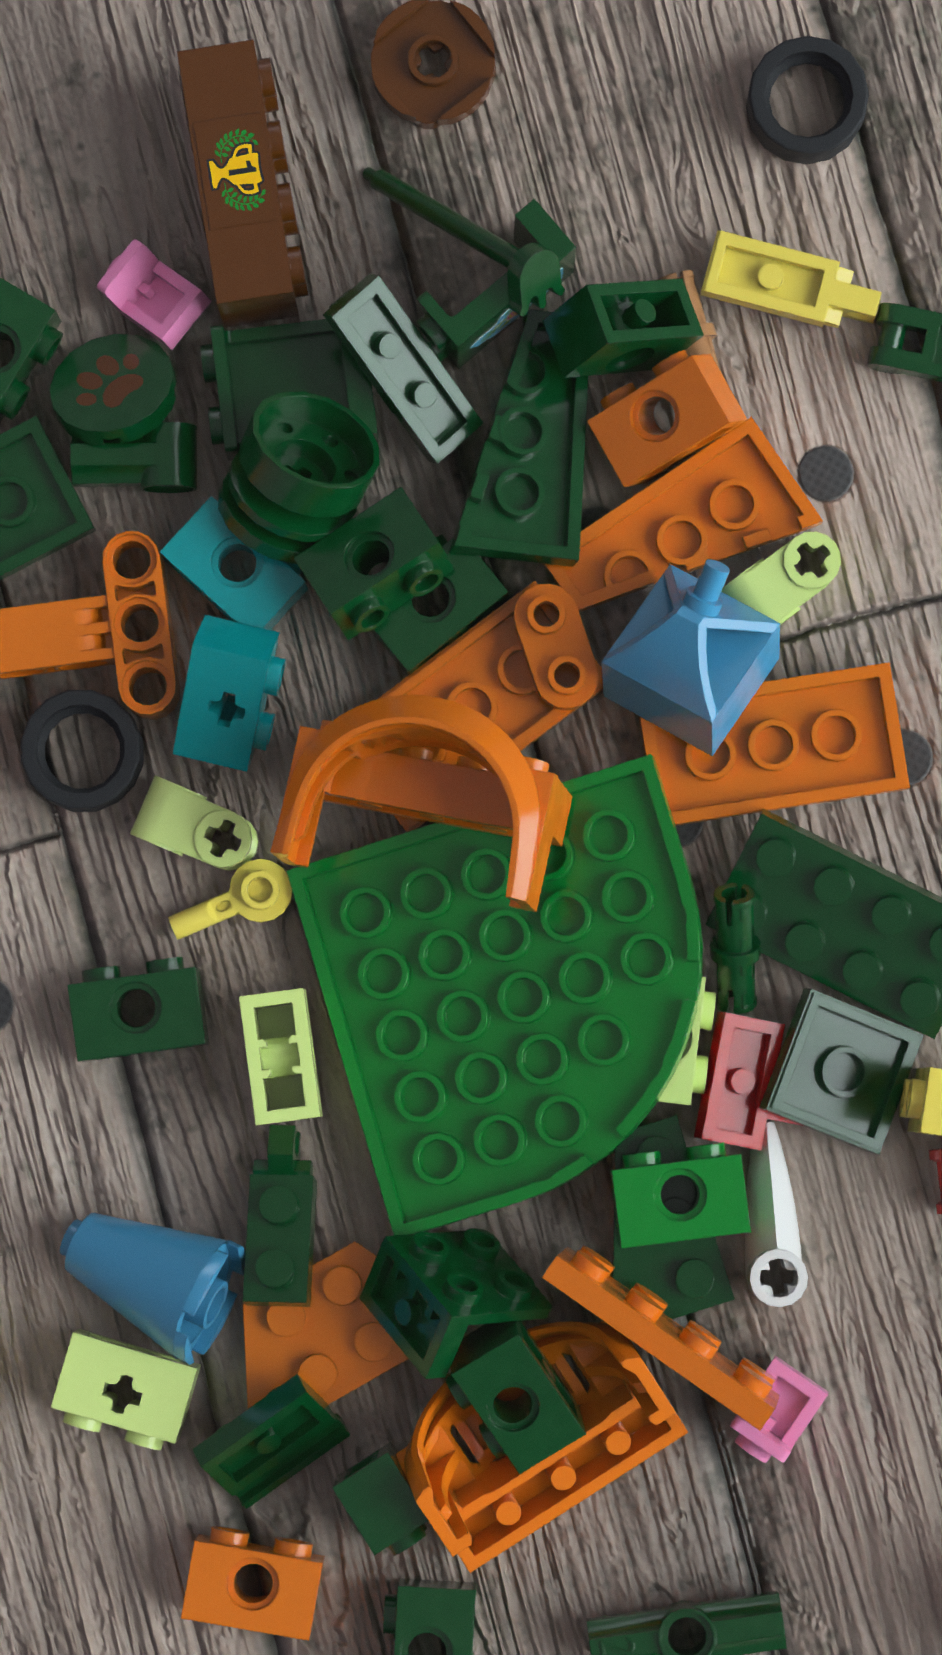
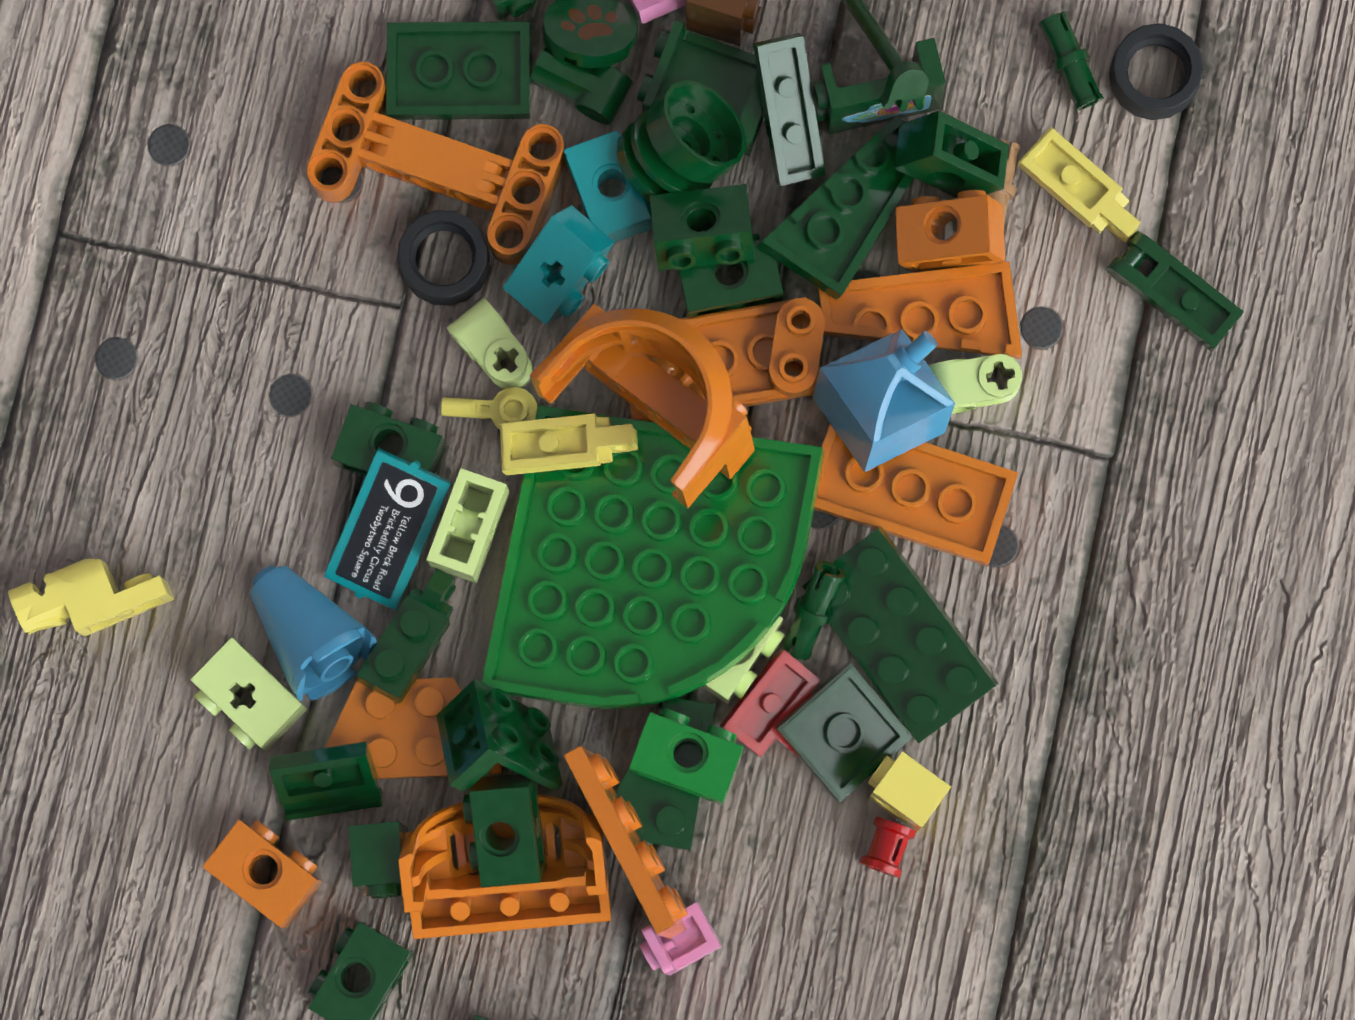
camera: 30 degrees right, 5 degrees down
(187, 1108) = (387, 529): none -> piece
(341, 904) = (562, 443): none -> light yellow hinge
(699, 137) = (1070, 61): none -> dark green pin
(772, 1223) = (744, 809): white piece -> none

